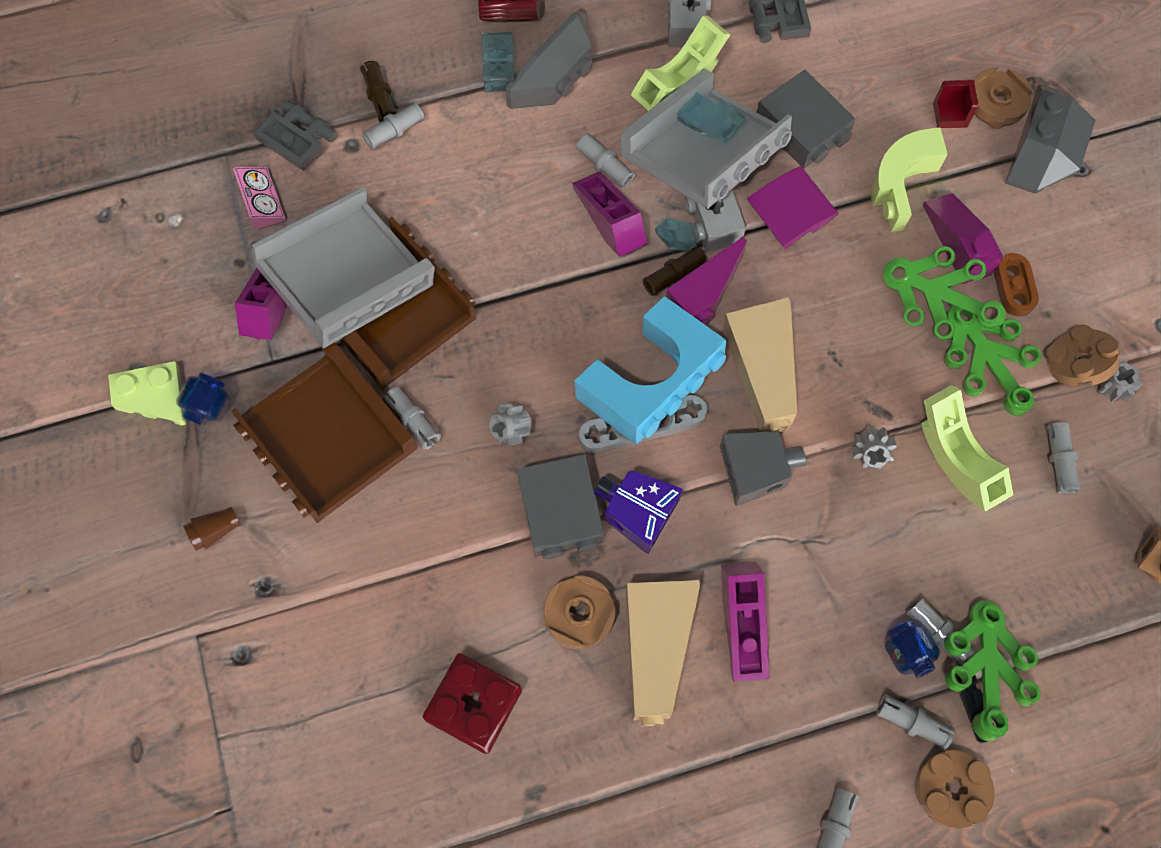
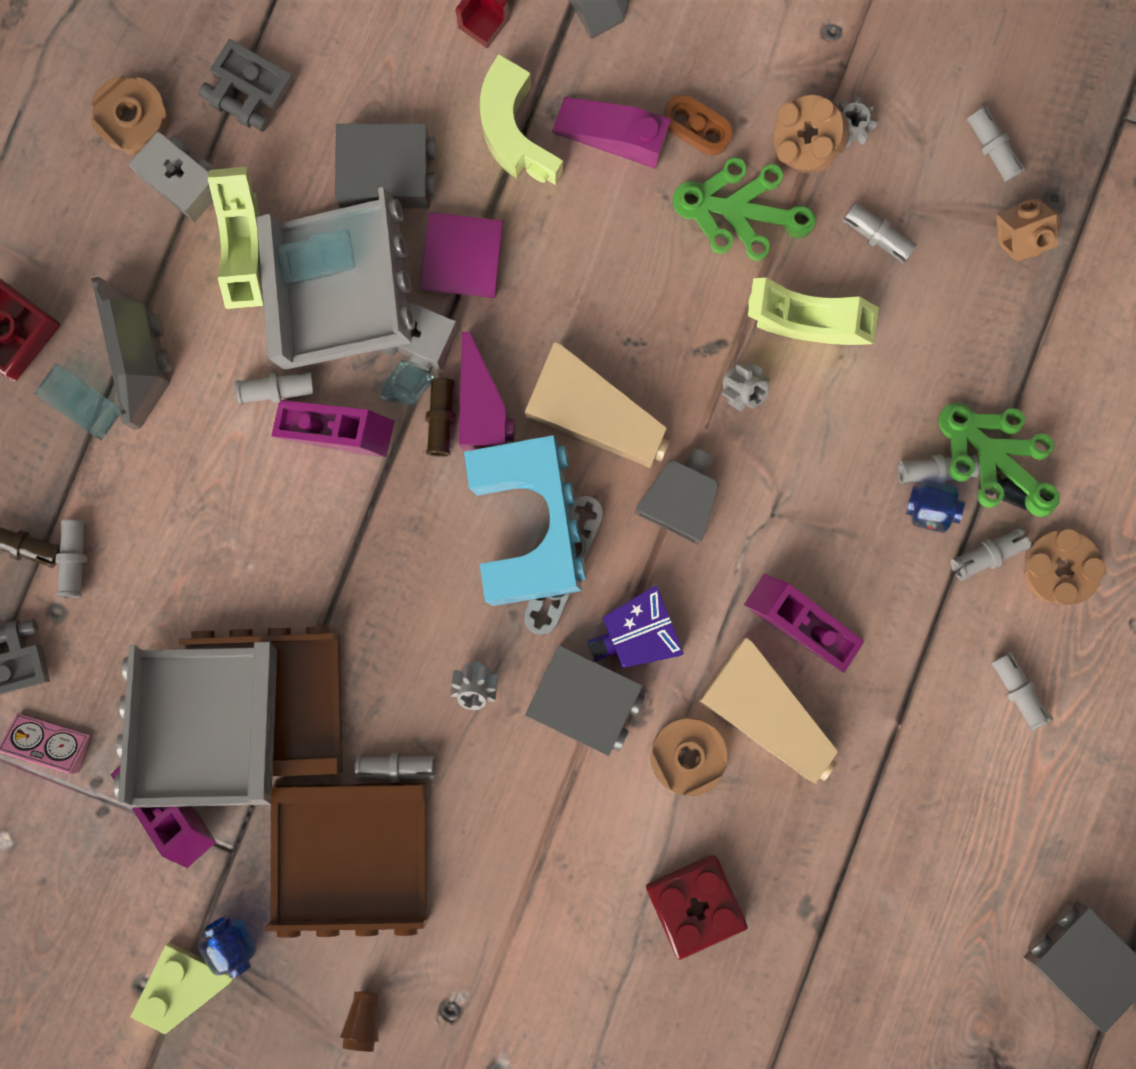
camera: 50 degrees left, 15 degrees up
(938, 290) = (651, 202): bright green plant -> none

